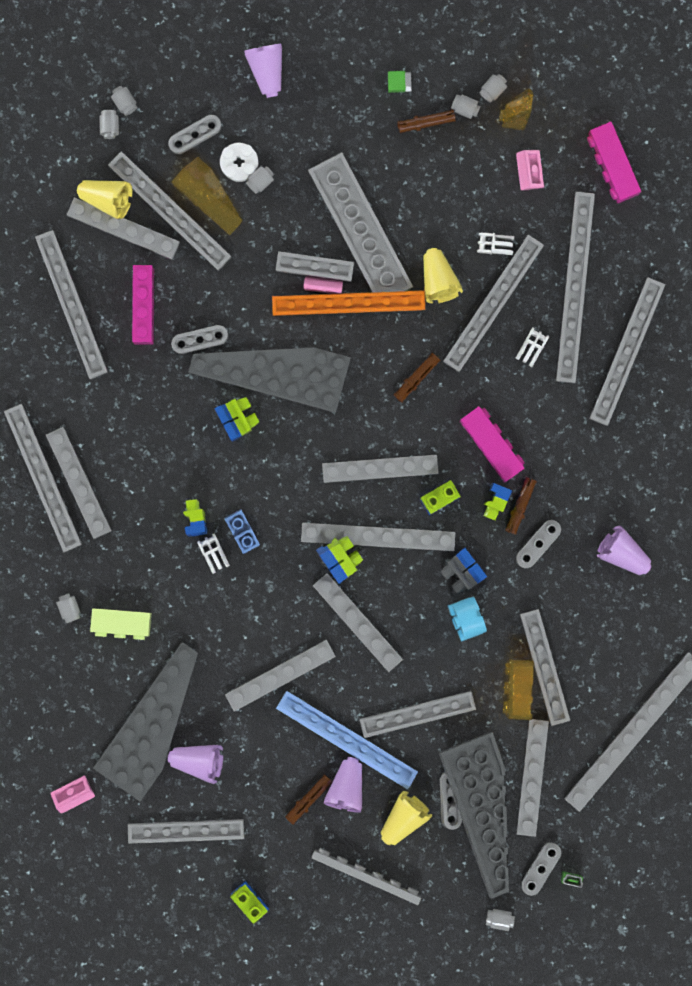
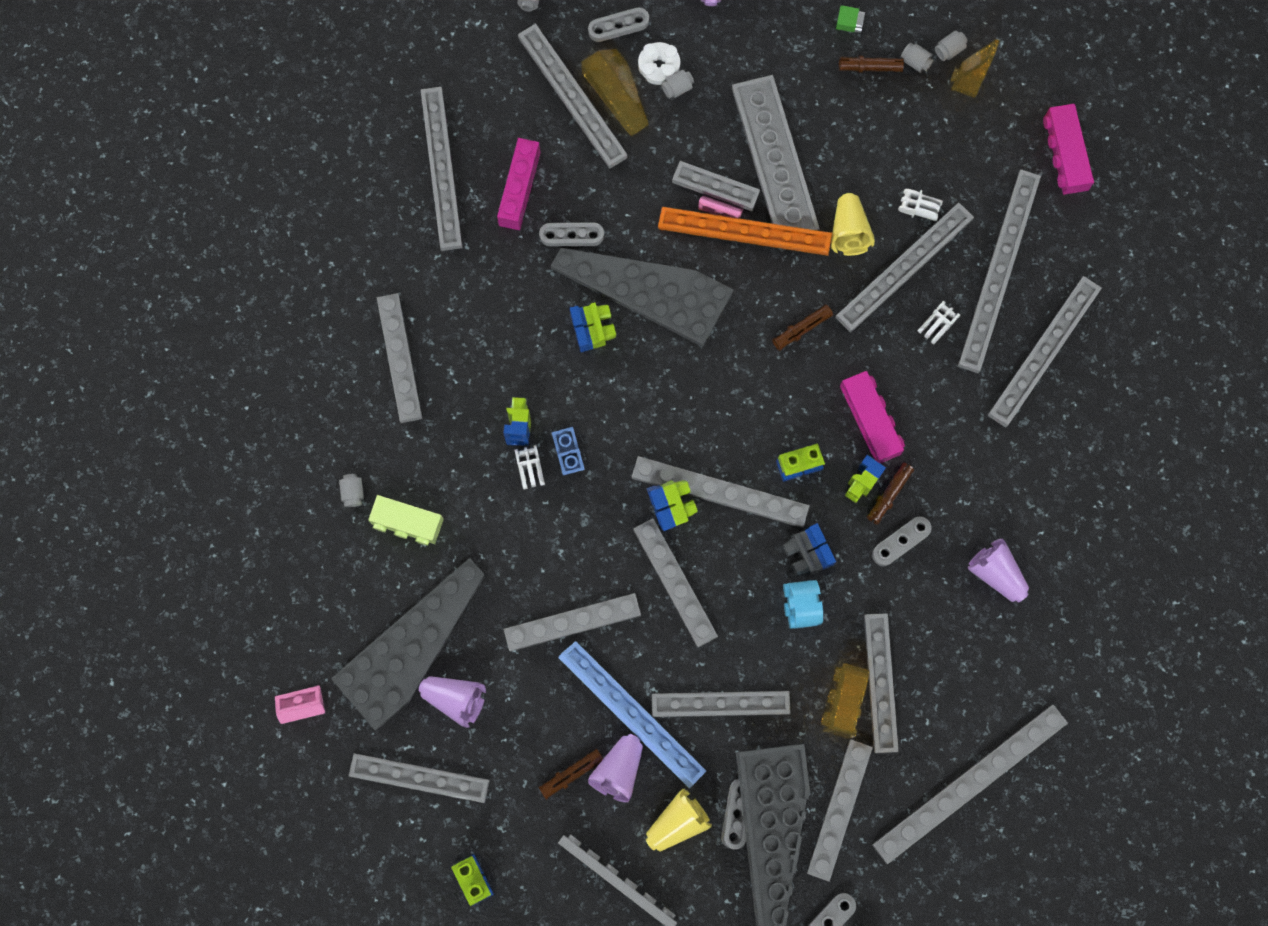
camera: 15 degrees right, 10 degrees down
(42, 478) = (361, 343): light grey plate -> none
(107, 196) = (509, 64): light yellow cone -> none
(123, 229) = (518, 103): light grey plate -> none
(380, 468) = (739, 417): light grey plate -> none
(530, 169) = (973, 138): bright pink slope -> none

